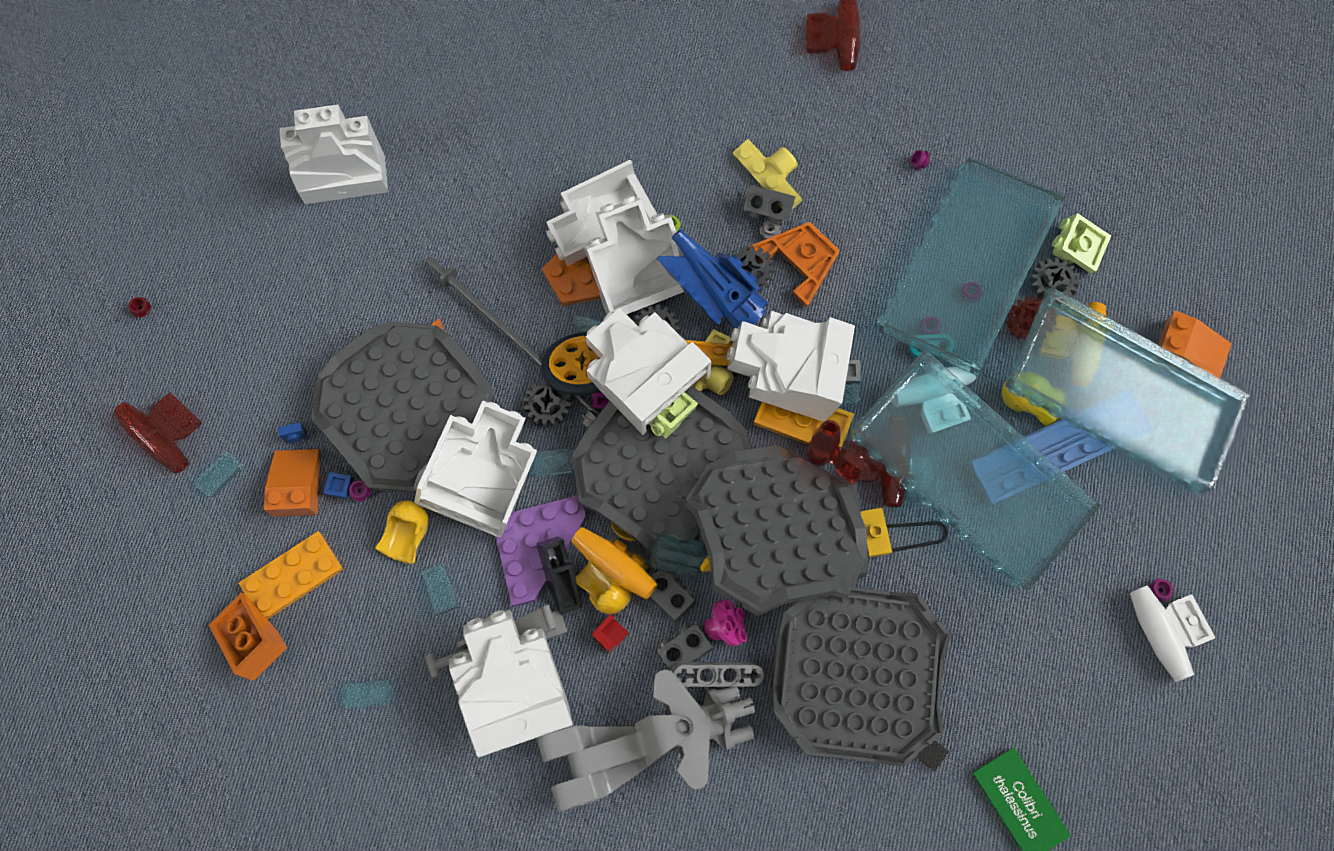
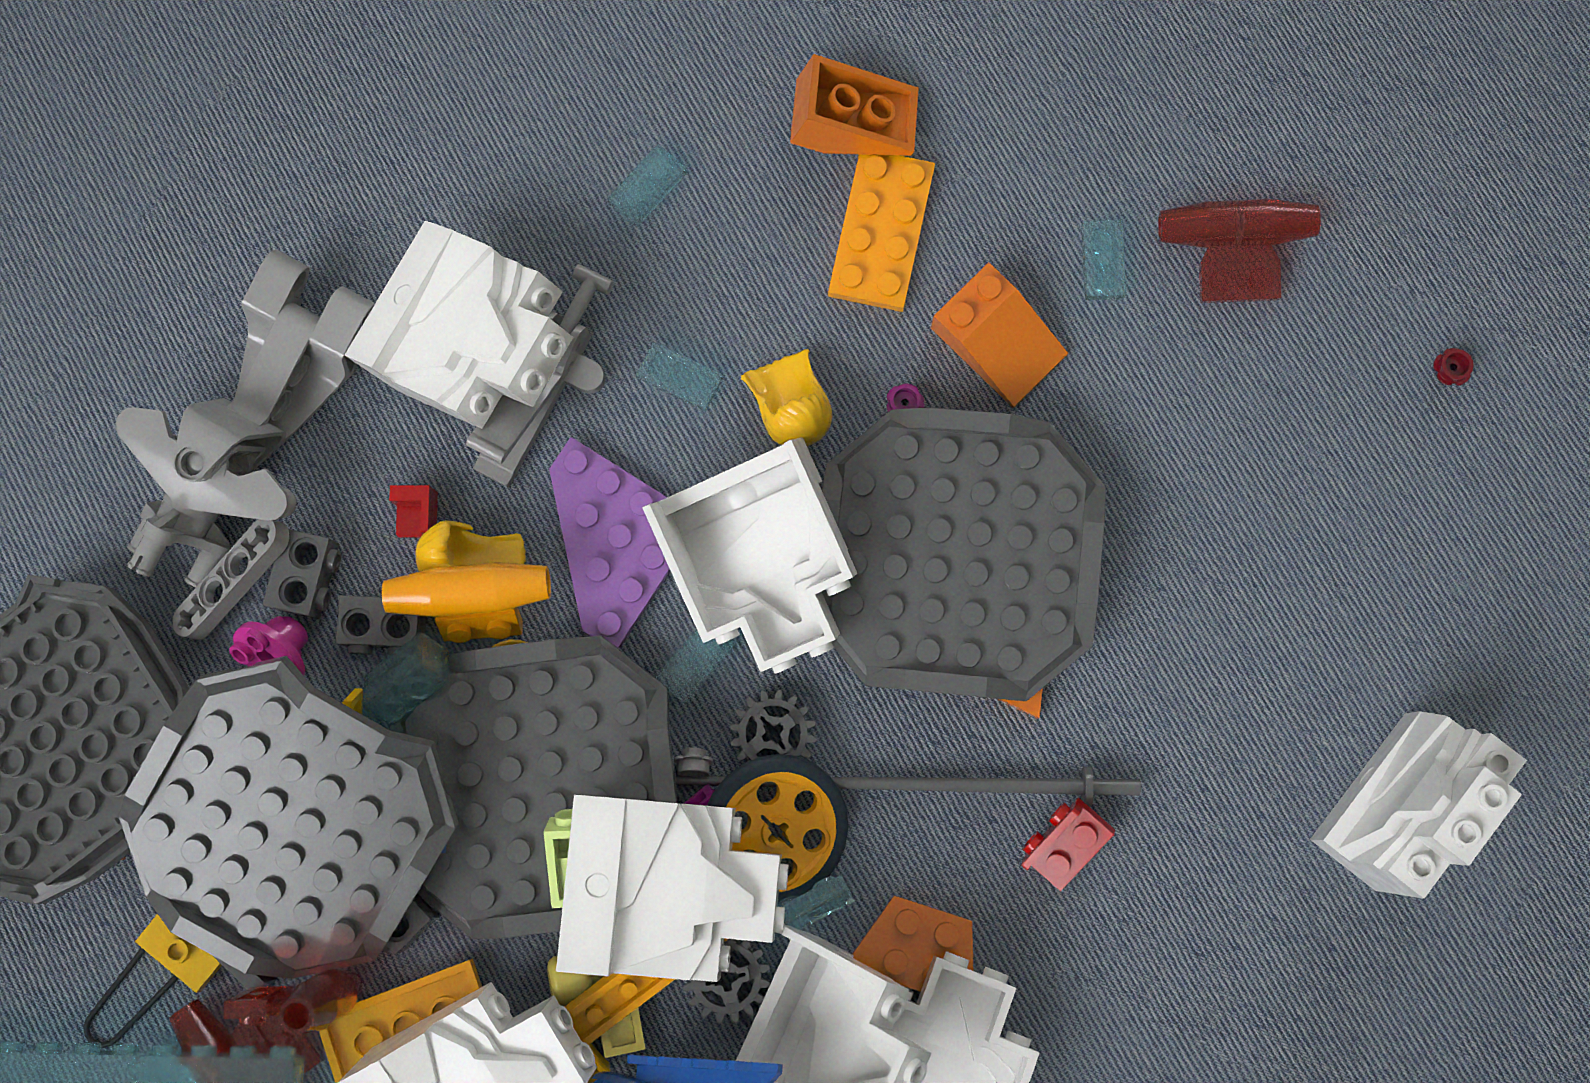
camera: 140 degrees right, 10 degrees up
(292, 433) = (1064, 391): blue plate -> none
(338, 485) = (937, 382): blue plate -> none
(476, 263) = (1068, 844): none -> bracket
(559, 574) = (542, 525): black slope -> none

